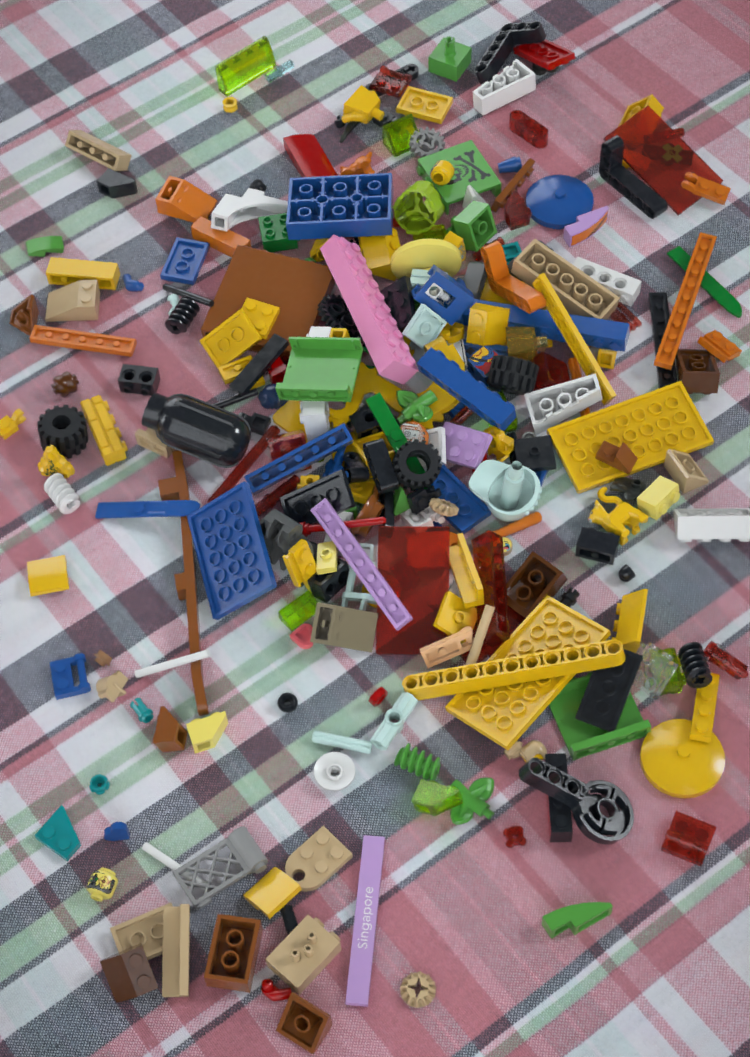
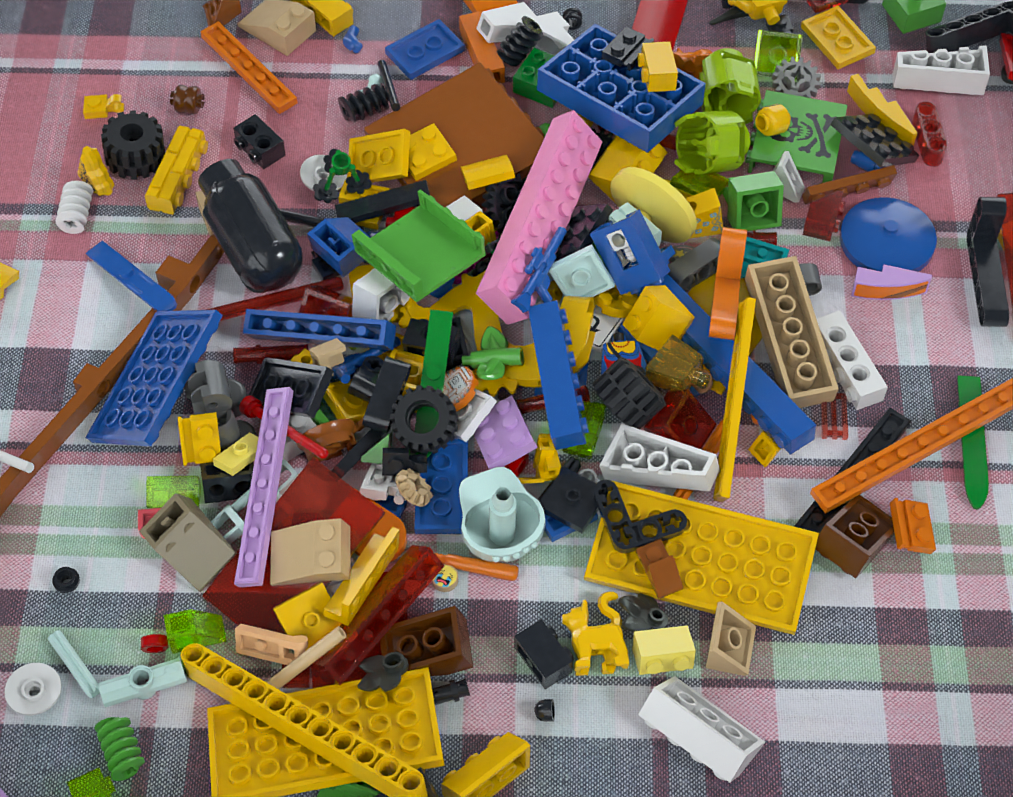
camera: 35 degrees right, 0 degrees up
(200, 373) = (313, 171): none -> white dish
(221, 356) = (340, 164): none -> black plant
(249, 218) = (520, 41): none -> black piece
(260, 404) = (334, 243): none -> blue slope
(311, 303) = (487, 172): none -> yellow slope
(322, 466) = (328, 353): none -> tan panel
(326, 180) = (625, 48): none -> plate
(359, 178) = (658, 66): none -> yellow brick
(393, 672) = (193, 627): none -> clear neon green slope
(400, 162) = (730, 83): none -> lime piece
(402, 337) = (539, 279): none -> blue piece
(426, 580) = (311, 553): none -> tan slope
(496, 133) = (873, 102): none -> yellow slope
(505, 149) = (875, 139): none -> black plate
(527, 614) = (383, 671): none -> pearl dark grey plate
(584, 446) = (634, 530): none -> black beam

